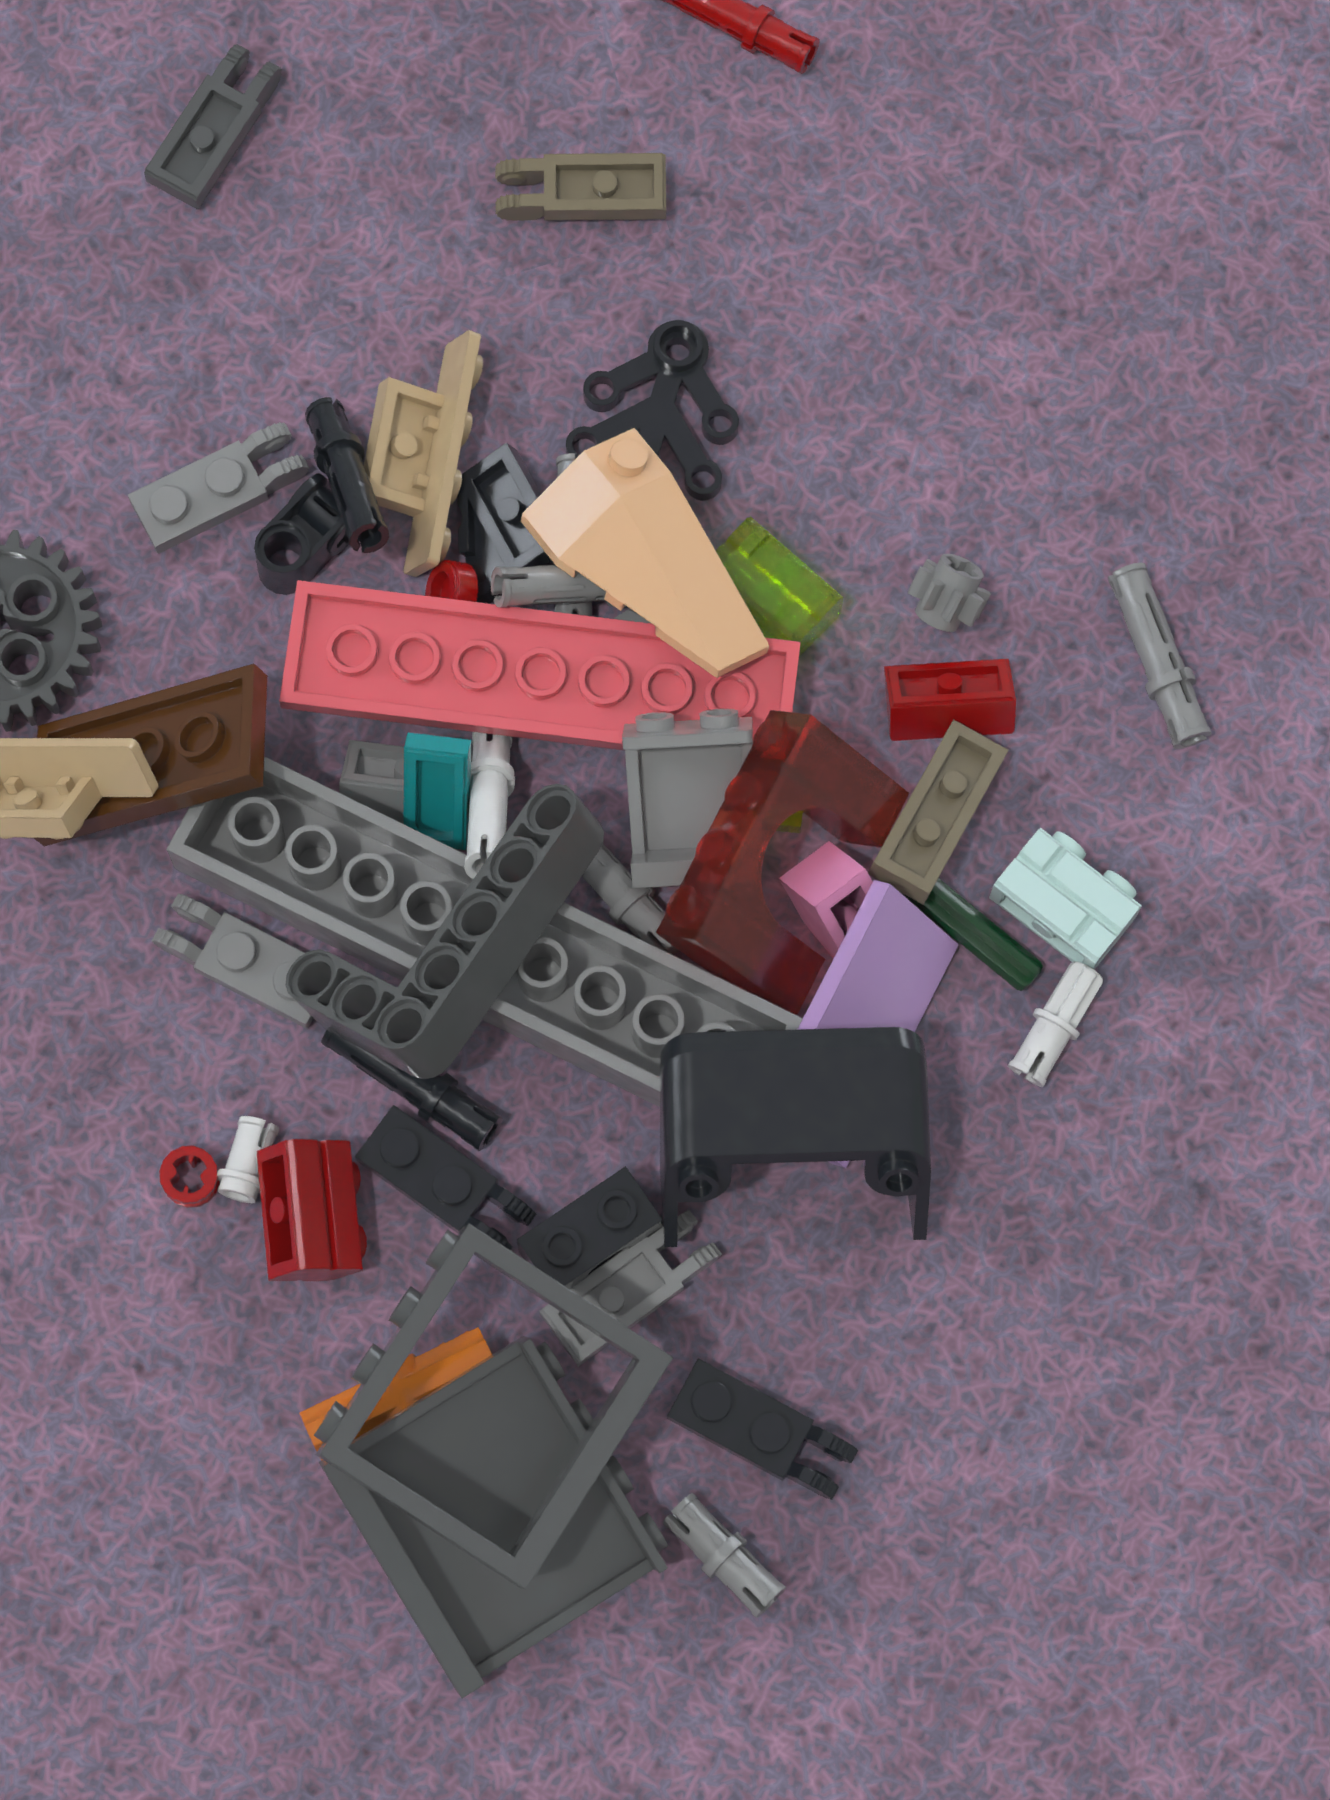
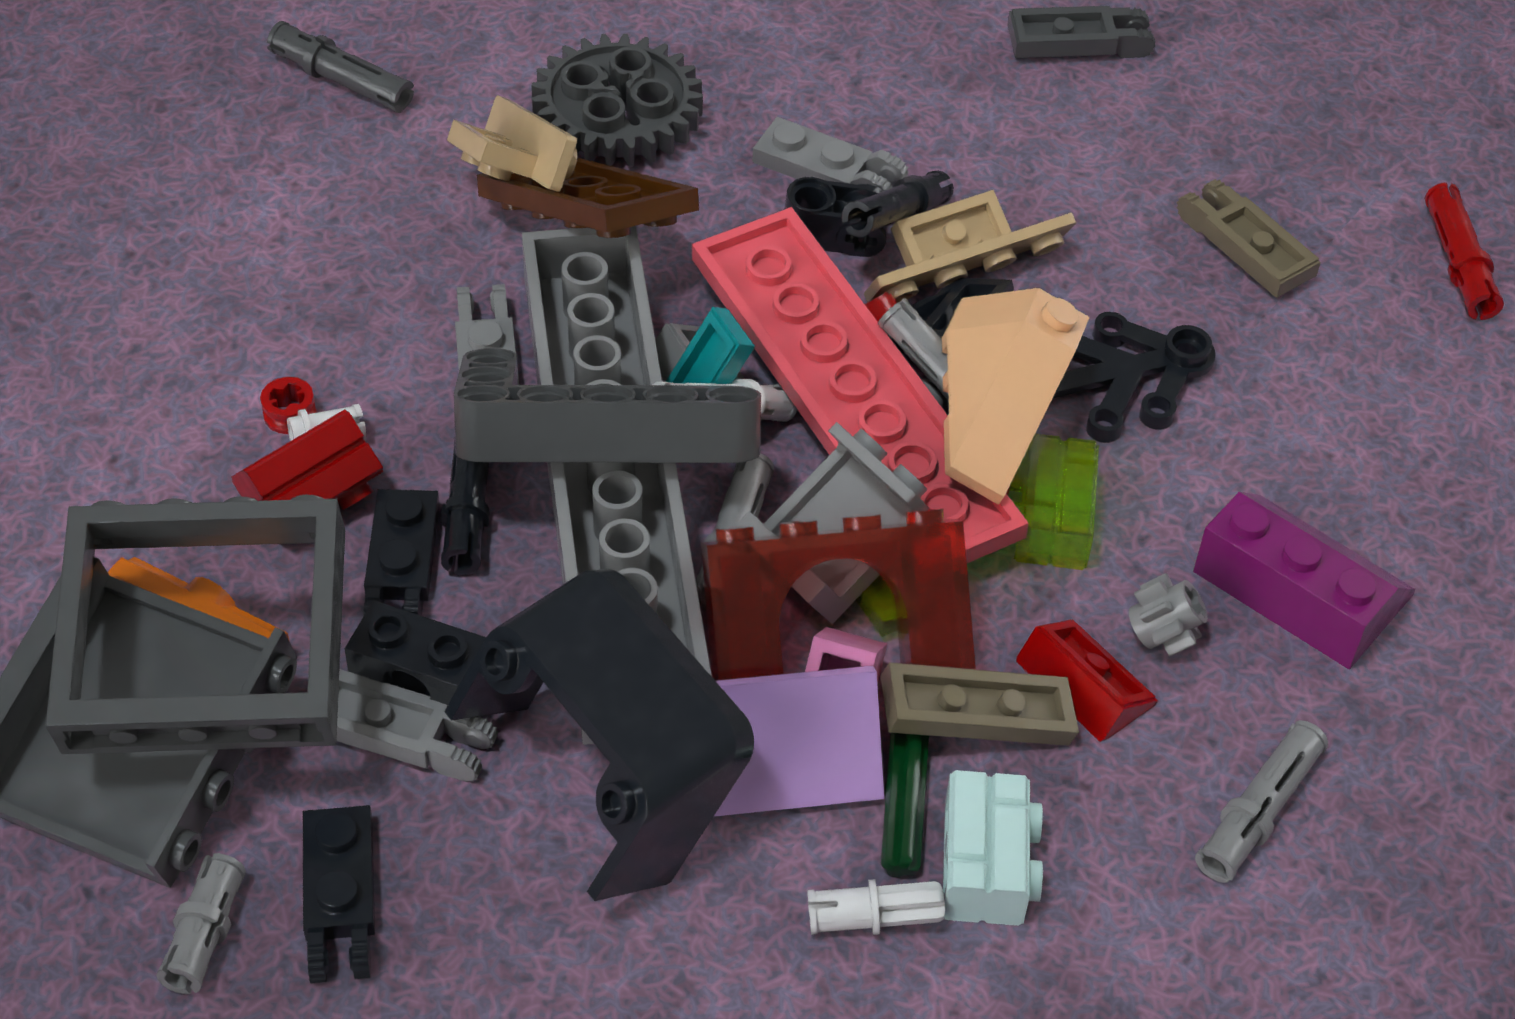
camera: 55 degrees right, 25 degrees down
(978, 447) = (1299, 577): none -> magenta slope

